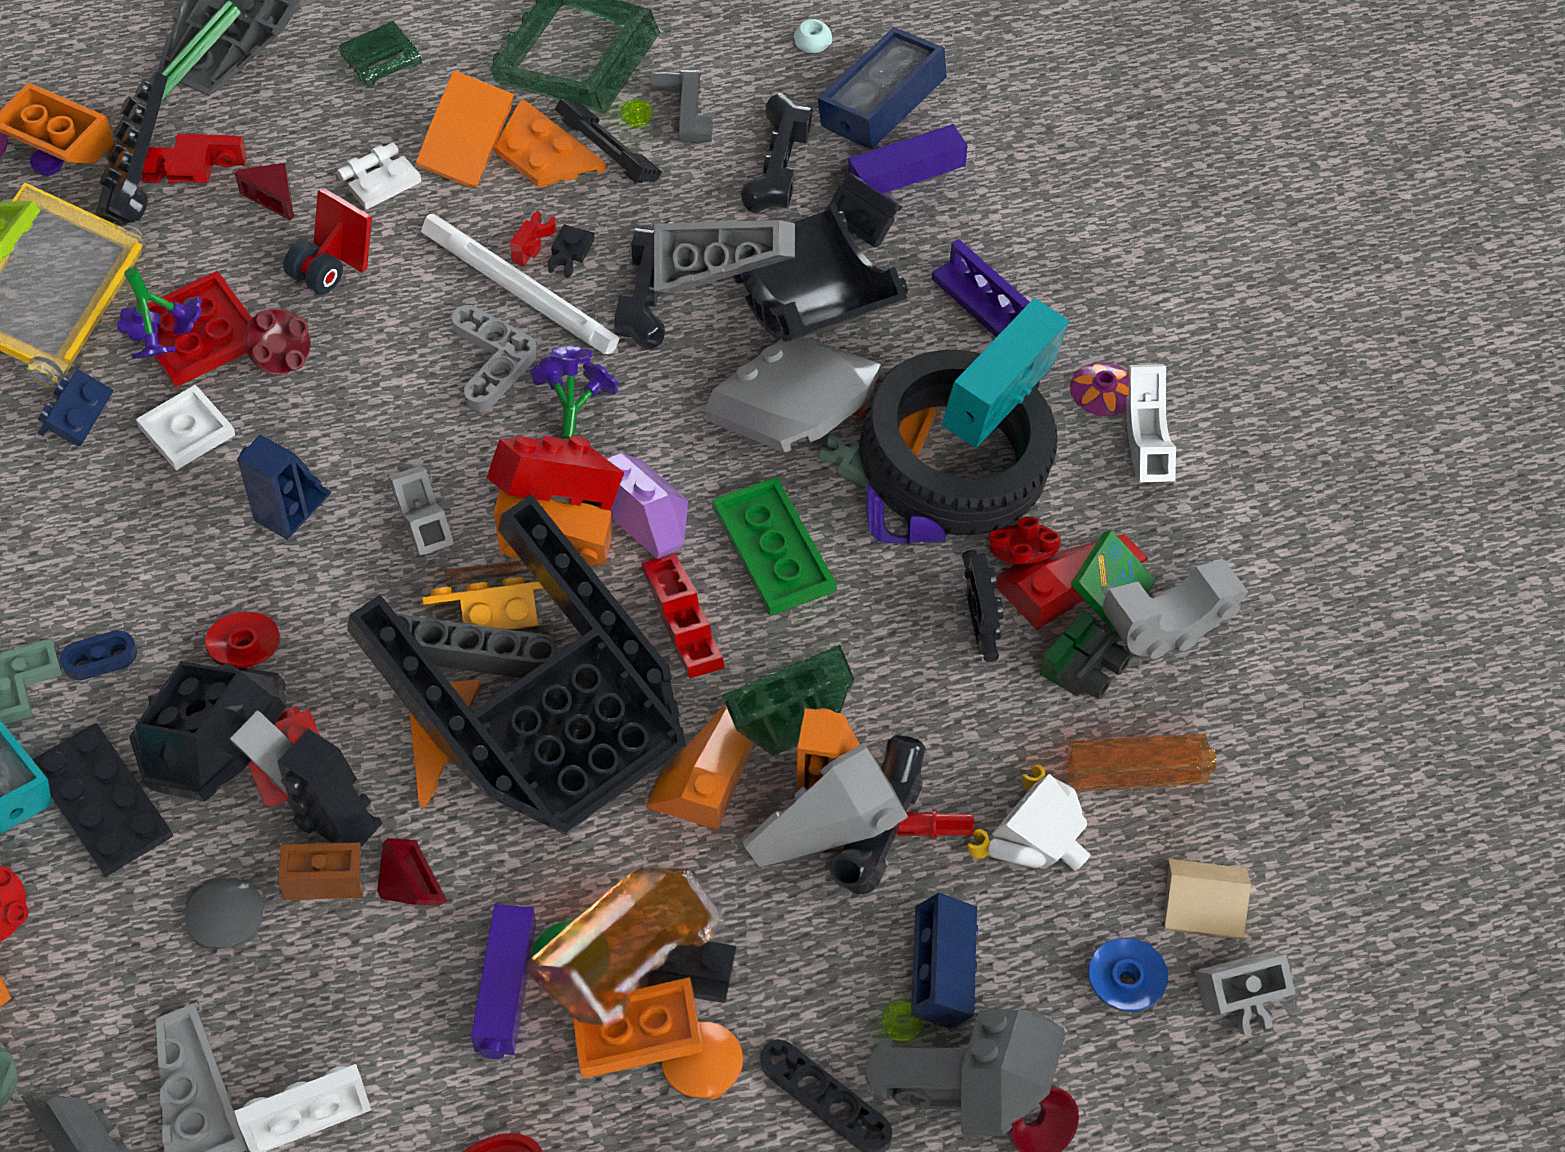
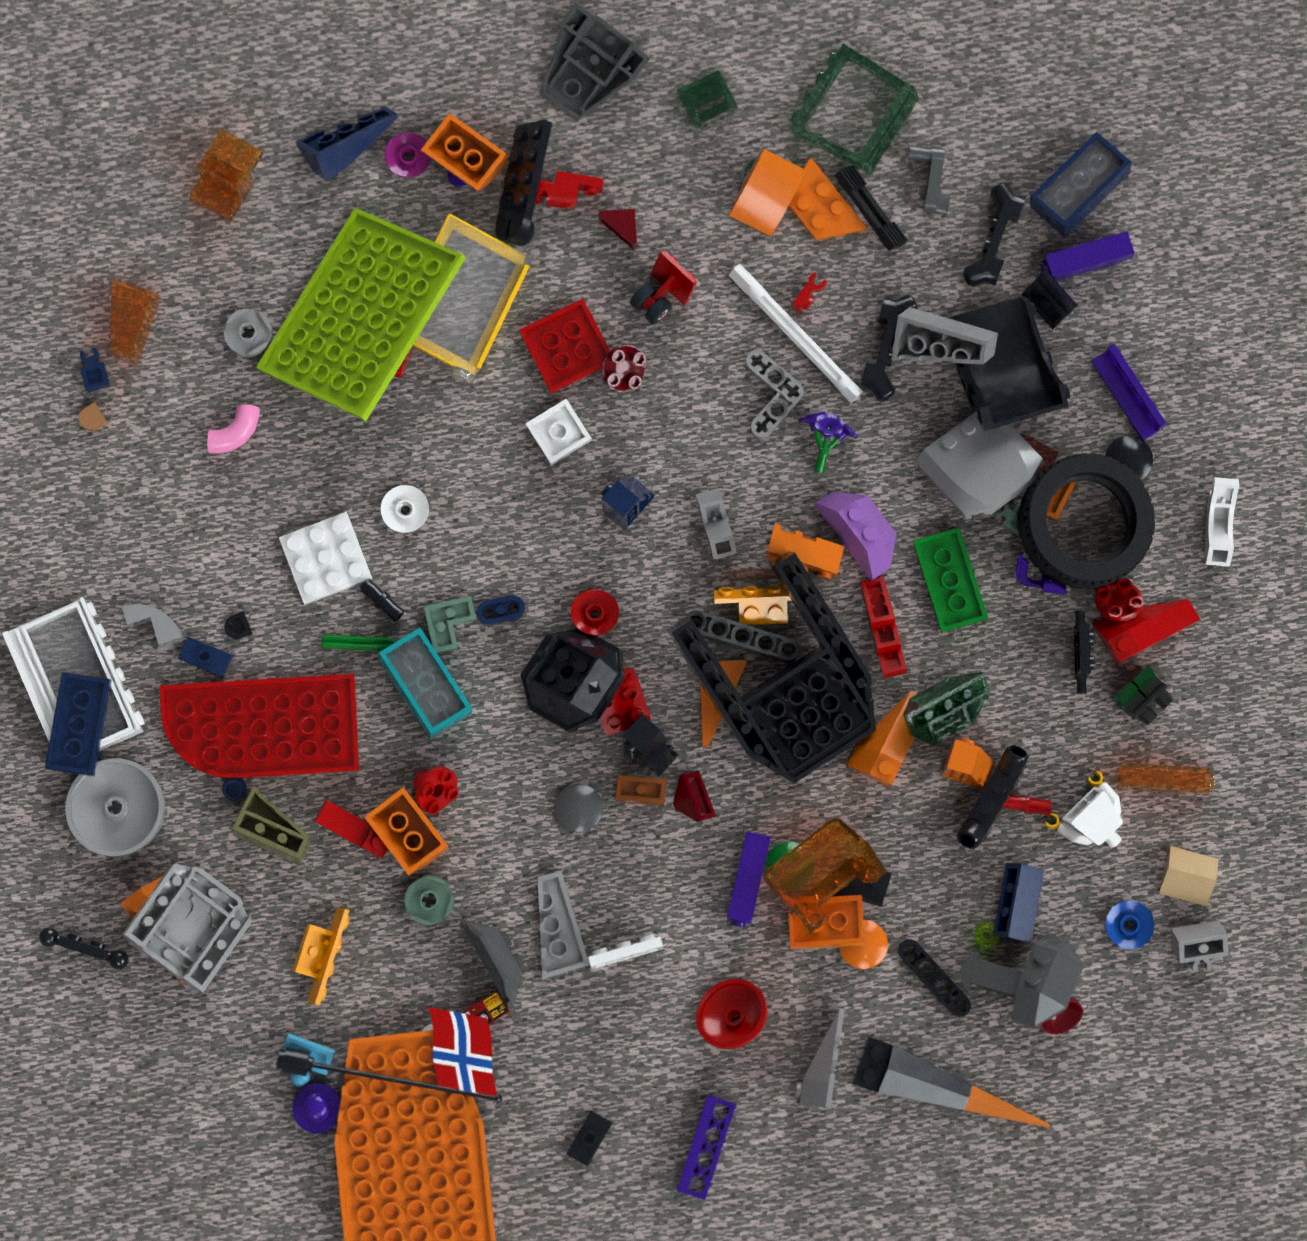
camera: 10 degrees right, 25 degrees up
(76, 408) = (482, 406): dark blue bracket -> none
(102, 800) = (502, 717): black plate -> none
(142, 324) = (529, 342): dark purple plant -> none
(199, 45) = (569, 86): axle -> none
(263, 746) = (614, 715): light grey brick -> none
(382, 182) = (704, 224): white plate -> none
(554, 468) = (811, 521): red wedge -> none
(570, 245) = (835, 302): black plate -> none
(636, 112) = (894, 187): clear neon green plate -> none
(812, 36) = (1032, 126): light aqua plate -> none
(841, 808) = (975, 797): light grey wedge -> none
(1004, 372) = (1125, 491): teal brick -> none
(1097, 396) = (1187, 481): magenta dish -> none
(1108, 567) = (1172, 642): green tile -> none
(1178, 616) = (1207, 675): light grey brick -> none

